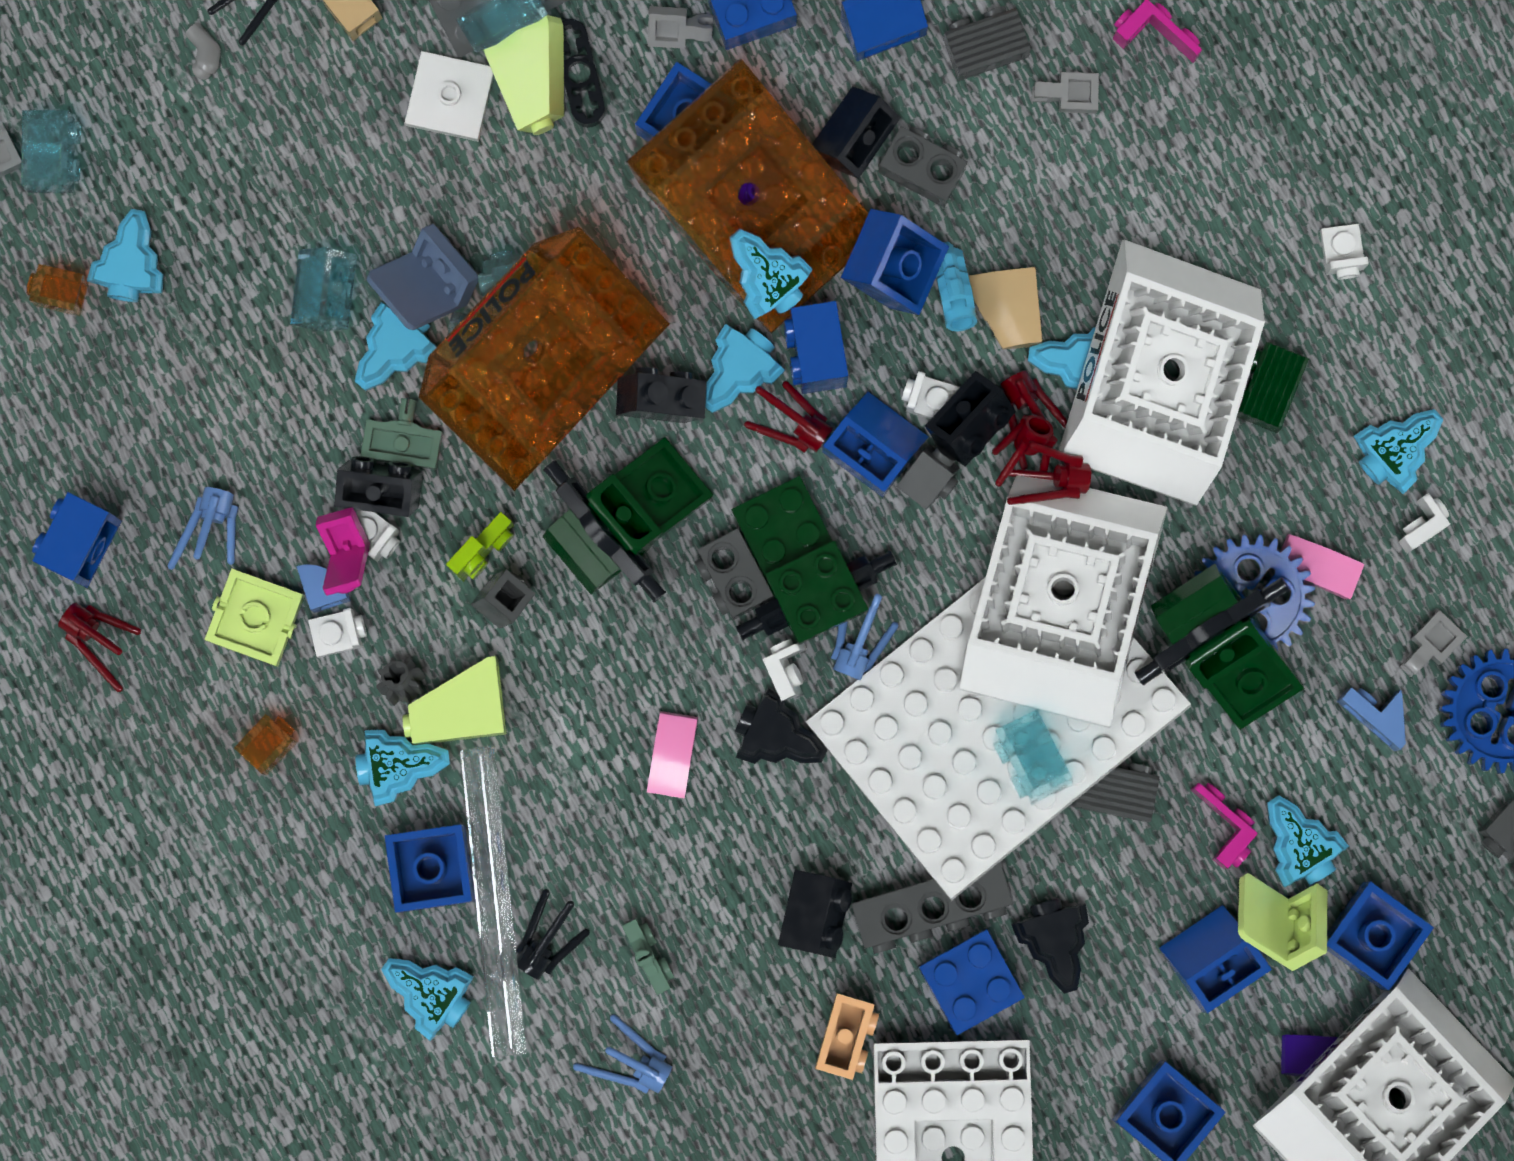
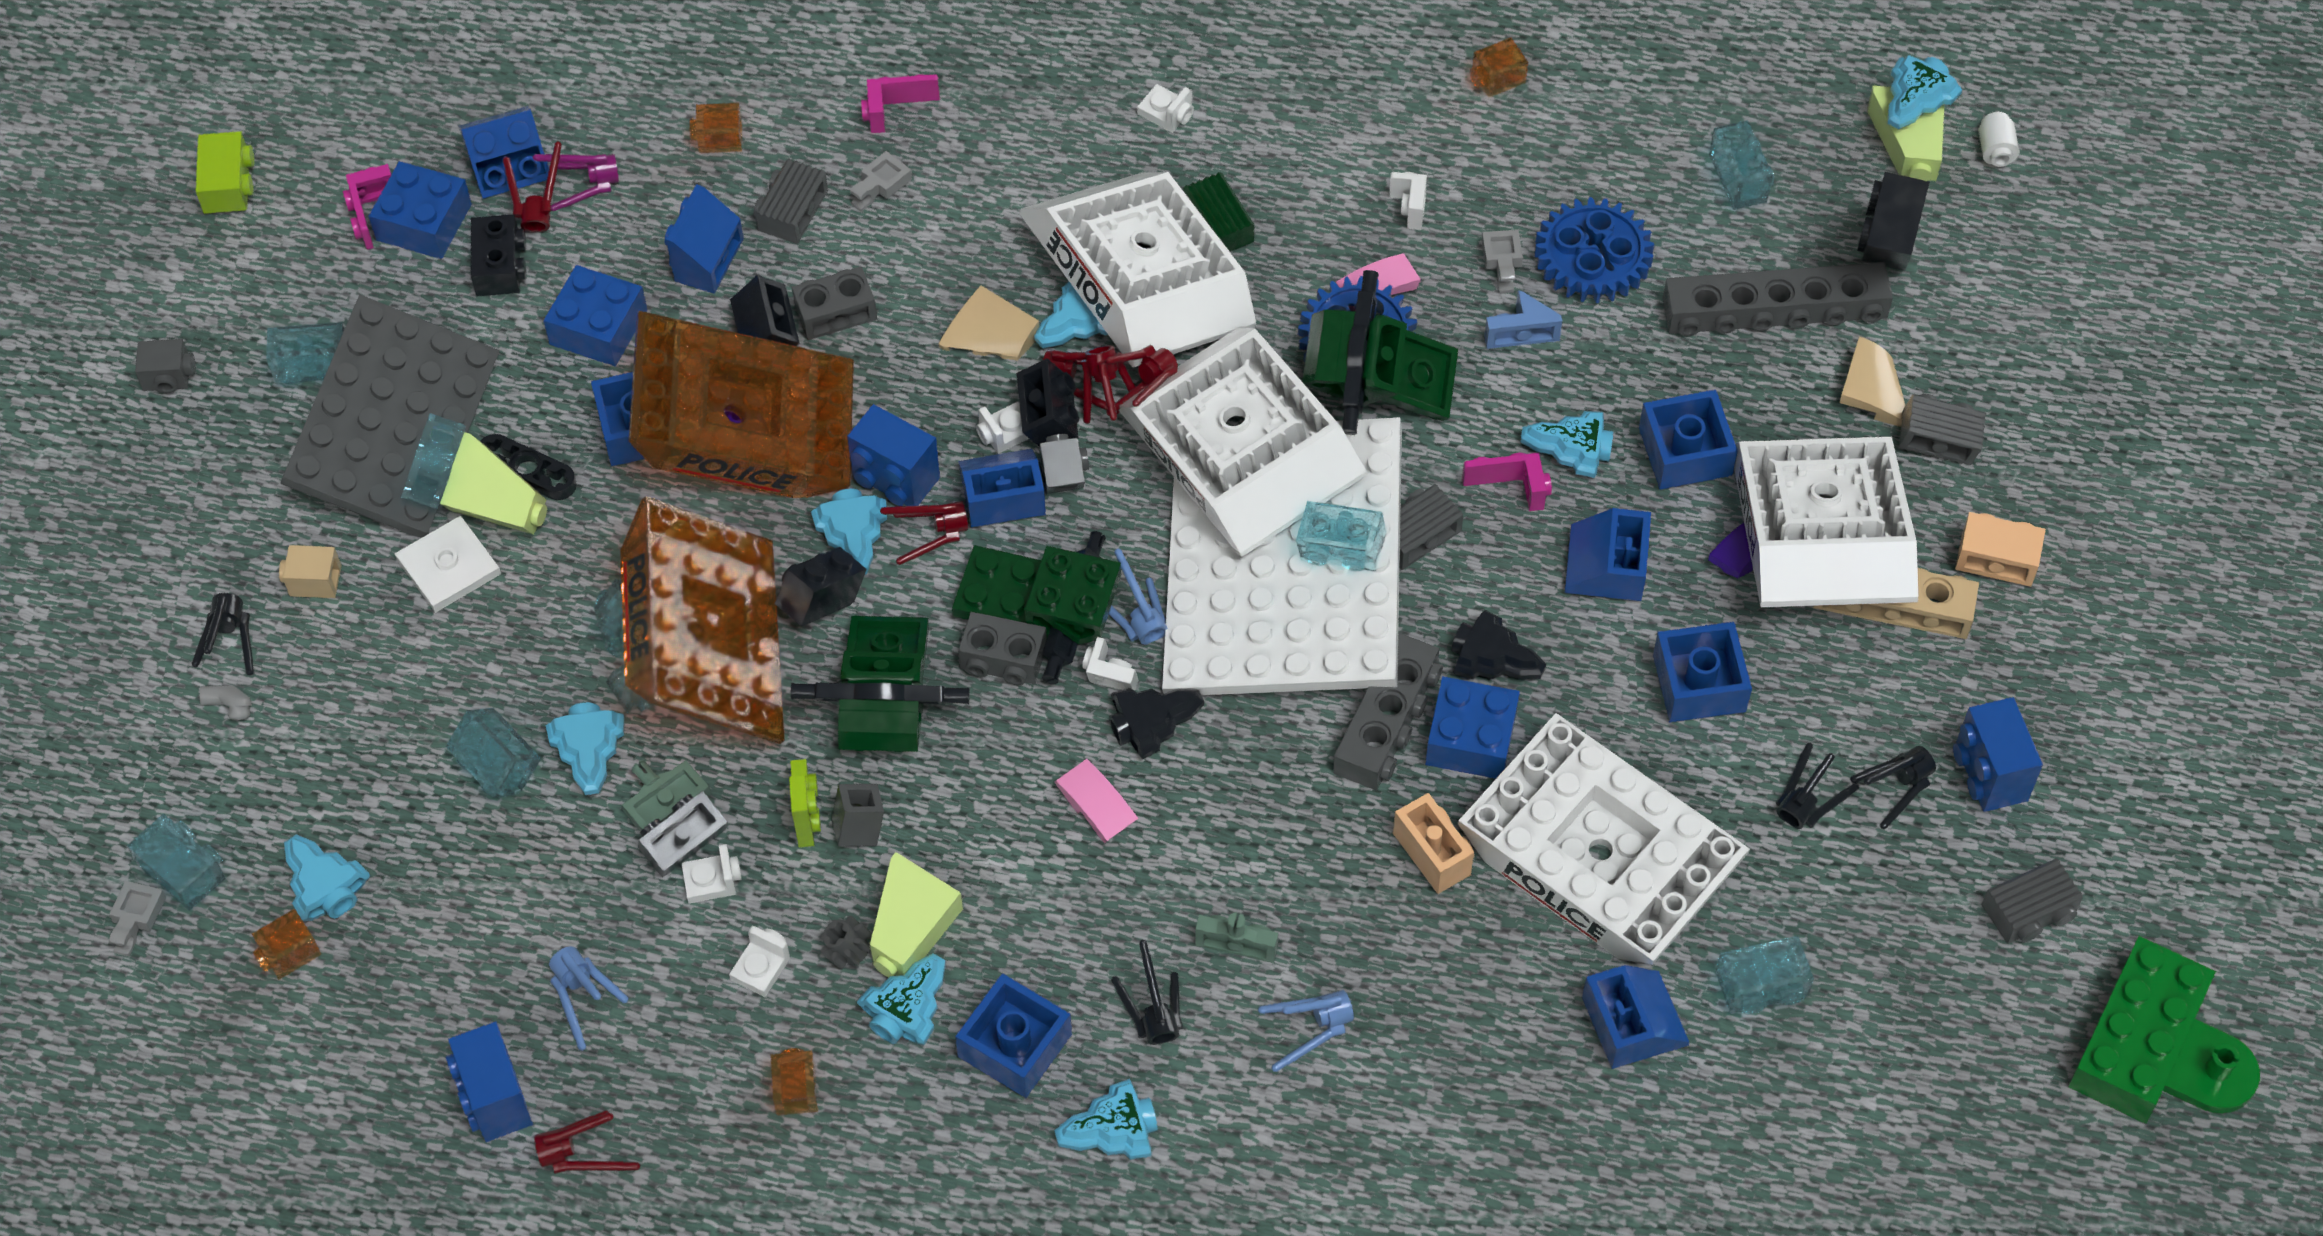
camera: 50 degrees left, 25 degrees down
(254, 617) = (686, 1012): yellowish green plate -> none
(312, 582) = (714, 940): medium blue brick -> none
(347, 550) = (701, 889): dark pink bracket -> none
(426, 281) = (564, 671): sand blue bracket -> none
(493, 901) = (1091, 1018): clear tile -> none
(671, 27) = (562, 378): light grey plate -> none
(767, 274) = (806, 433): medium azure rock -> none
(815, 913) = (1318, 790): black brick -> none
(894, 261) = (883, 361): blue brick -> none
(956, 291) = (946, 348): medium azure rock -> none
(1283, 928) = (1632, 479): yellowish green bracket -> none
(1398, 448) = (1340, 177): medium azure rock -> none

